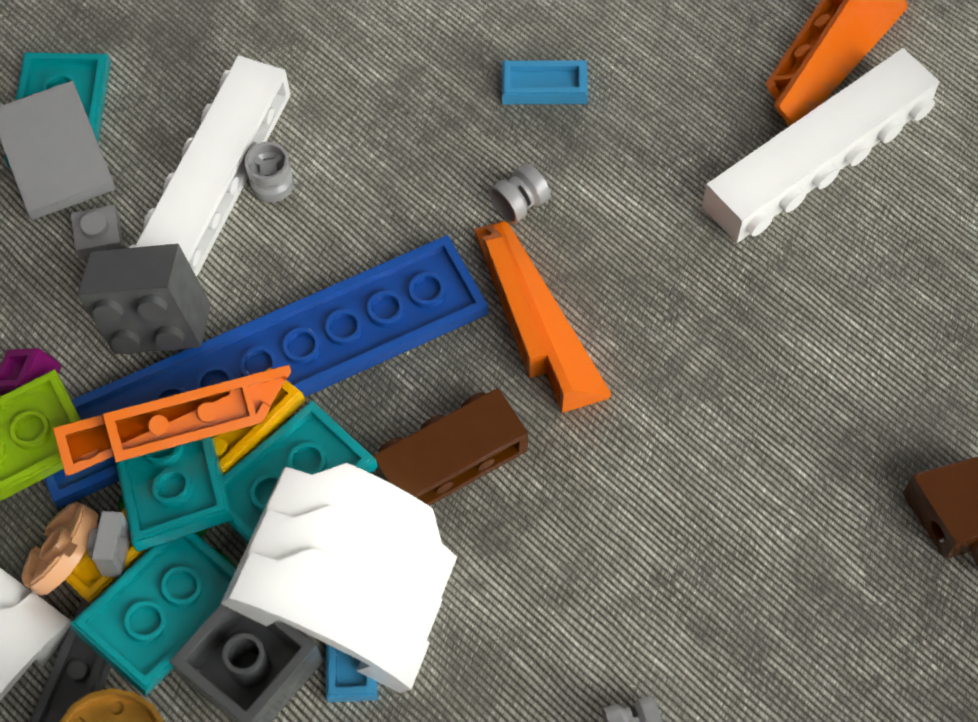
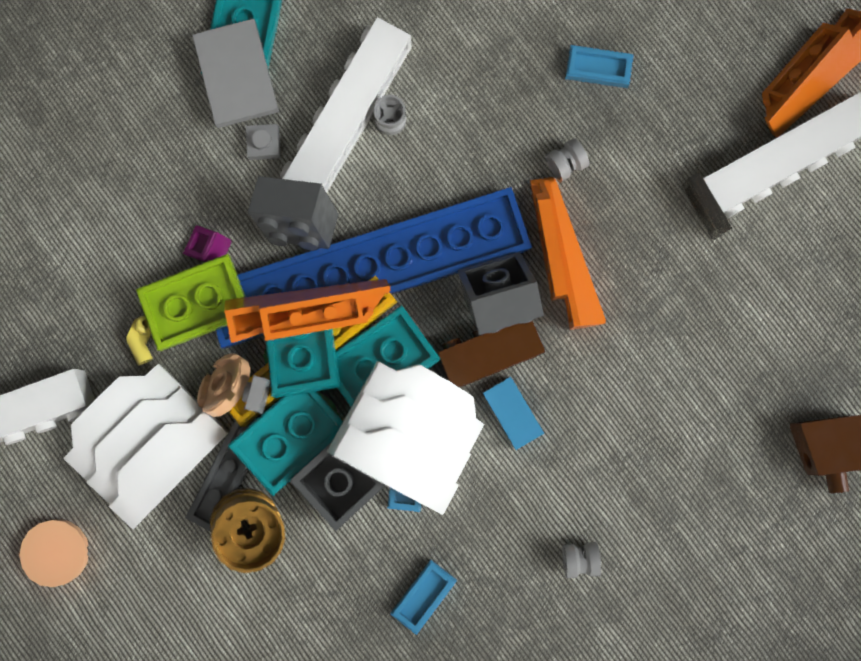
camera: 10 degrees right, 20 degrees up
(451, 364) = (500, 293): none -> dark grey brick
(497, 535) = (513, 413): none -> dark azure tile
(720, 223) = (706, 206): none -> clear smoke tile

